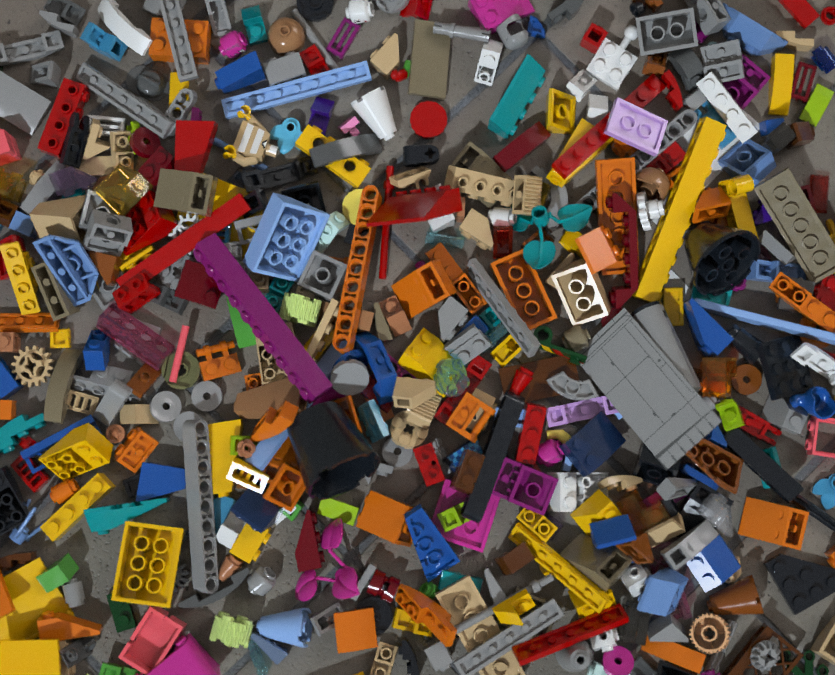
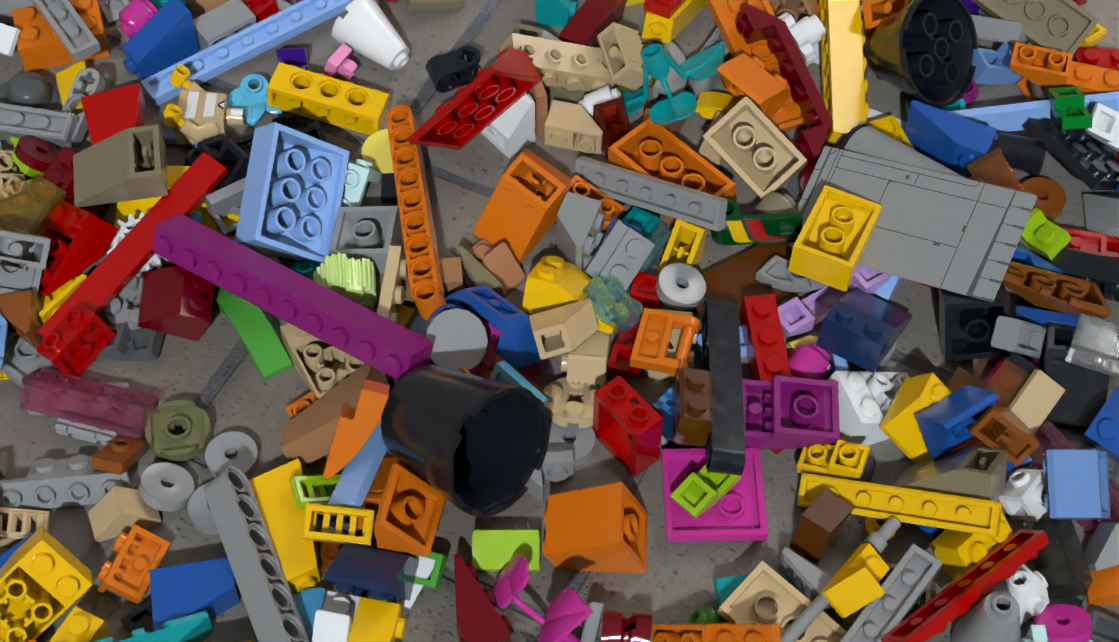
camera: 20 degrees left, 30 degrees down
(97, 351) = (30, 438): blue slope -> none
(112, 402) = (75, 495): light grey beam -> none
(115, 433) = (92, 553): nougat tile -> none
(179, 353) = (168, 402): coral bar -> none
(219, 366) = (238, 406): orange plate -> none
(241, 448) = (320, 487): nougat plate -> none
(344, 149) = (321, 81): dark grey slope -> none
(385, 228) = (420, 115): red bar -> none
(412, 177) = (443, 93): tan plate -> none
(428, 119) = (449, 31): red tile -> none
(430, 545) = (677, 539): blue wing -> none
(445, 239) = (548, 153): clear light blue pin -> none
(505, 378) = (680, 298): none -> light grey piece
(521, 379) = (719, 278): red cone -> none
(600, 380) = (834, 238): none -> yellow slope
(621, 482) = (941, 363): tan slope -> none
(689, 545) = (1078, 409): light grey slope -> none
(788, 336) = (1069, 108): none -> green slope

